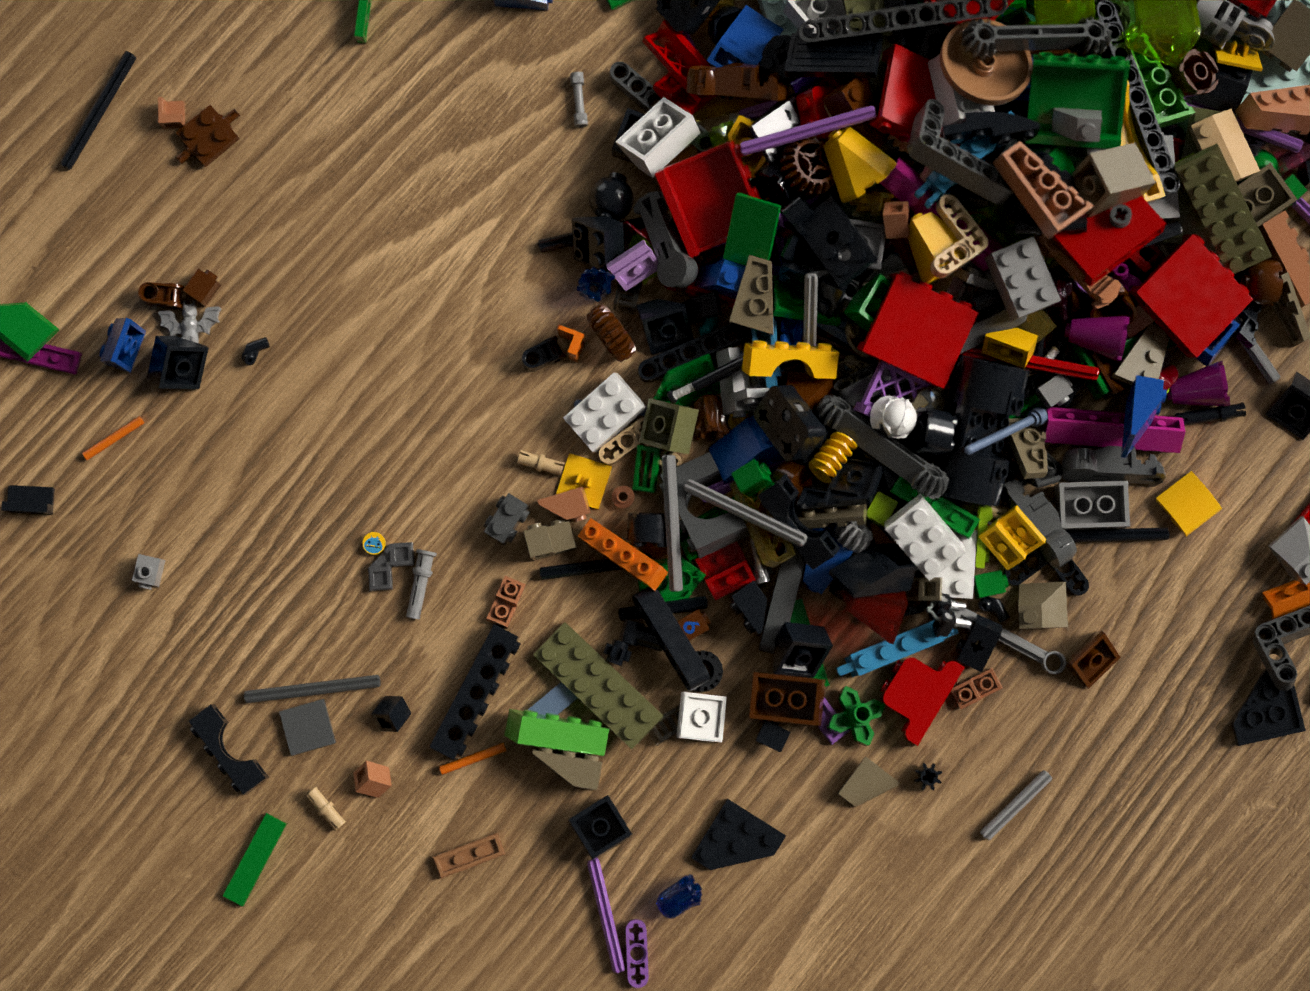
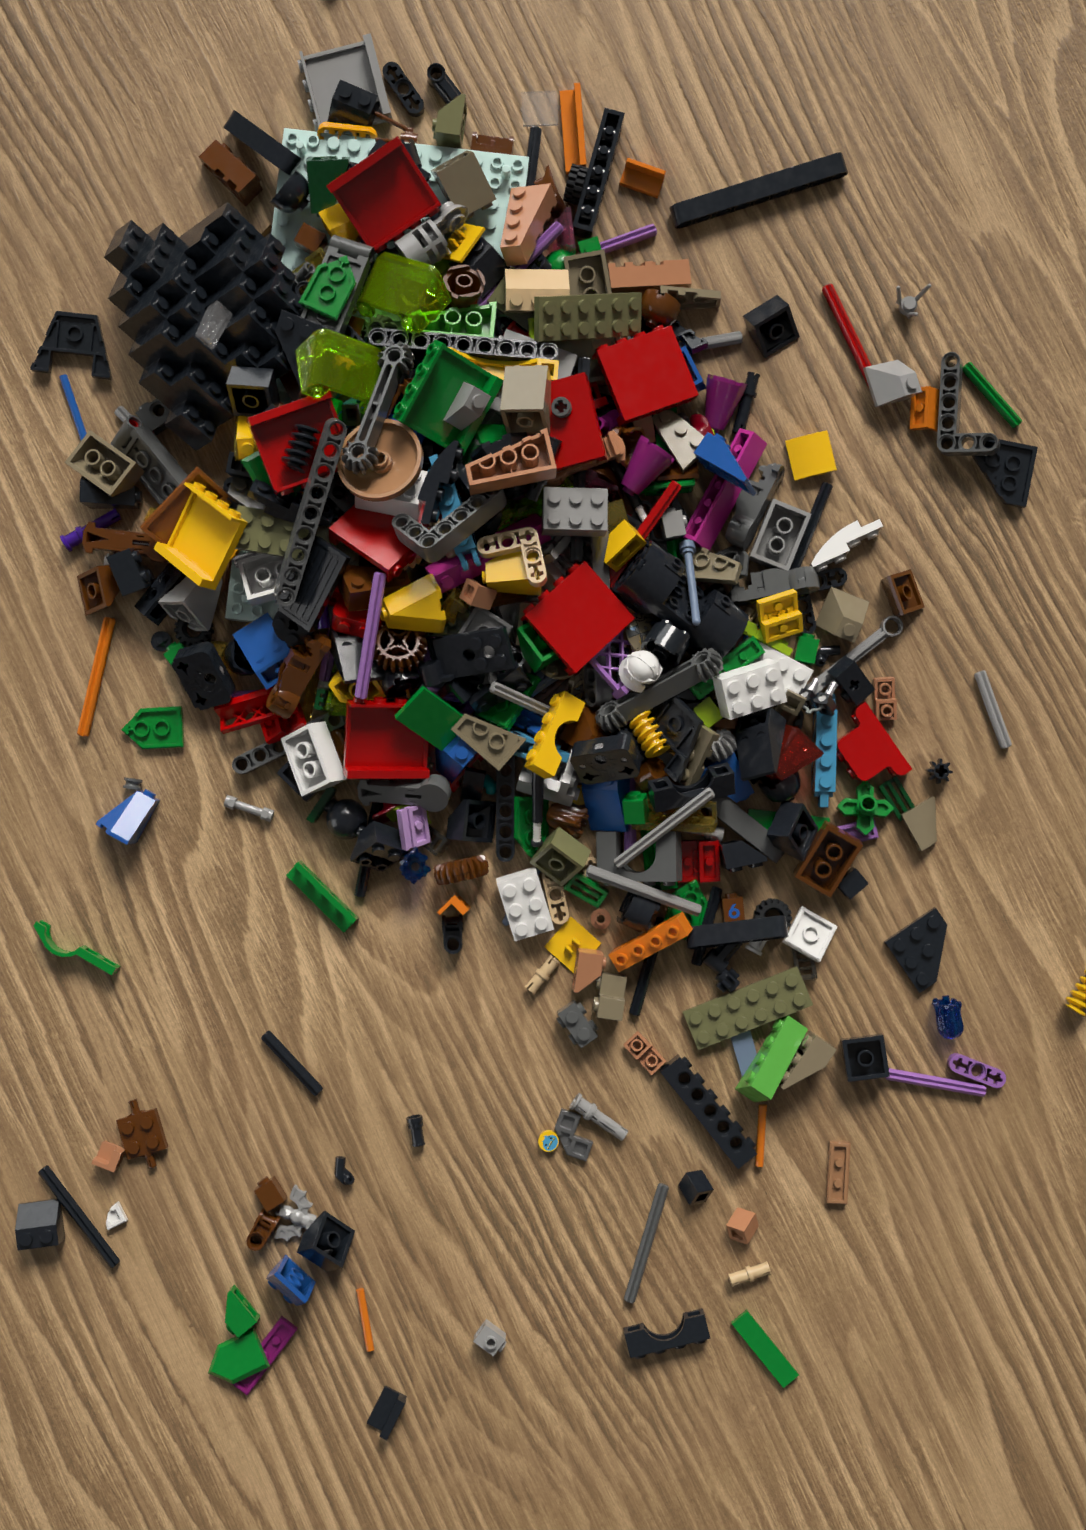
camera: 65 degrees left, 5 degrees up
(68, 308) = (239, 1312): none -> green slope
(74, 74) = (39, 1224): none -> black slope
(113, 146) = (115, 1216): none -> white tile
(307, 727) = (676, 1260): dark grey tile -> none
(332, 402) = (415, 1125): none -> black pin
(342, 252) = (292, 1063): none -> black axle
(523, 209) = (322, 896): none -> green fence
(608, 167) = (320, 805): none -> dark green tile
(665, 667) = (756, 947): none -> white bush
(711, 123) = (318, 699): none -> dark green tile
(839, 621) = (781, 790): none -> black cylinder
(891, 730) = (889, 783): none -> dark green tile
(1107, 569) = (837, 546): none -> white slope

